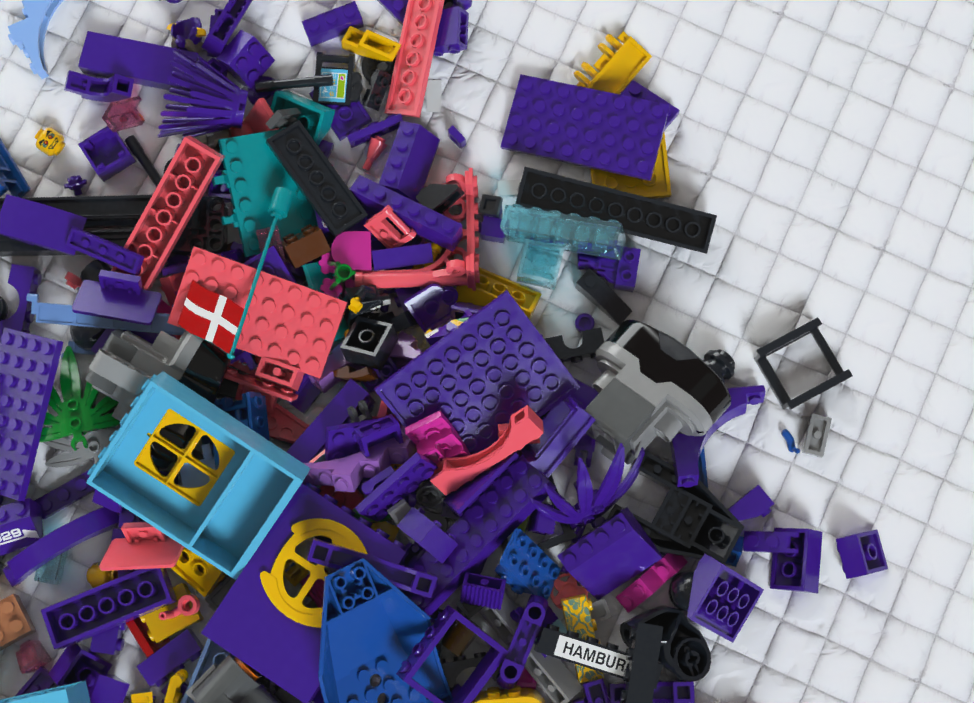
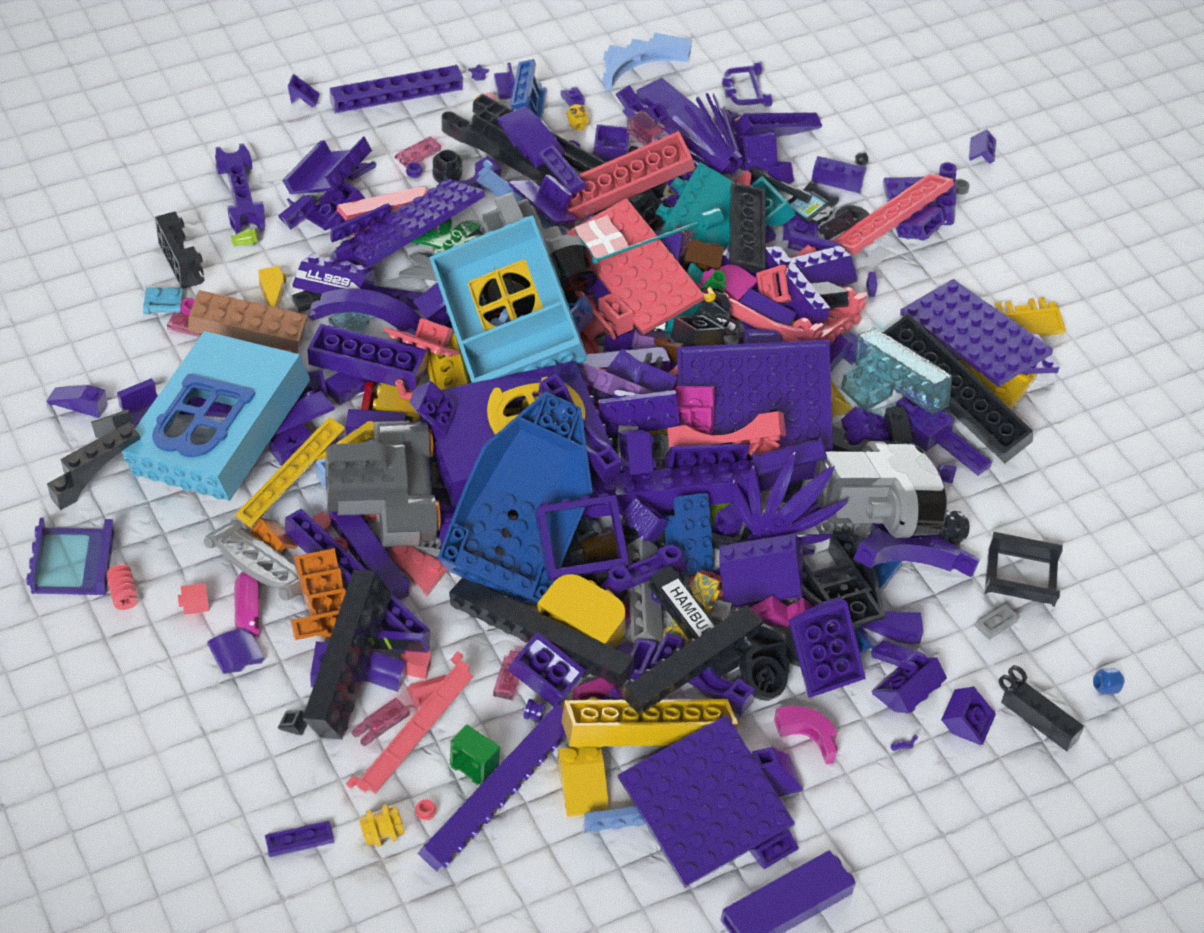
camera: 30 degrees right, 30 degrees down
(31, 119) = (573, 96): none -> dark purple plate
(228, 647) = (433, 406): none -> dark purple slope
(283, 118) = (753, 179): dark grey plate -> none
(284, 66) = (782, 171): none -> dark purple brick
(370, 45) = (854, 197): yellow slope -> none
(487, 248) = (838, 350): none -> dark purple slope
(490, 205) = (859, 326): black plate -> none
(570, 312) = (864, 424): none -> dark purple bracket
(666, 270) = (964, 452): none -> dark purple plate
(669, 308) = (947, 472): none -> dark purple tile
(741, 670) = (810, 723): none -> dark pink arch
(790, 441) = (970, 618): blue piece -> none
(833, 617) = (903, 744): none -> dark purple piece
(914, 504) = (1039, 710): none -> black hinge
(941, 426) = (1108, 681): none -> blue head

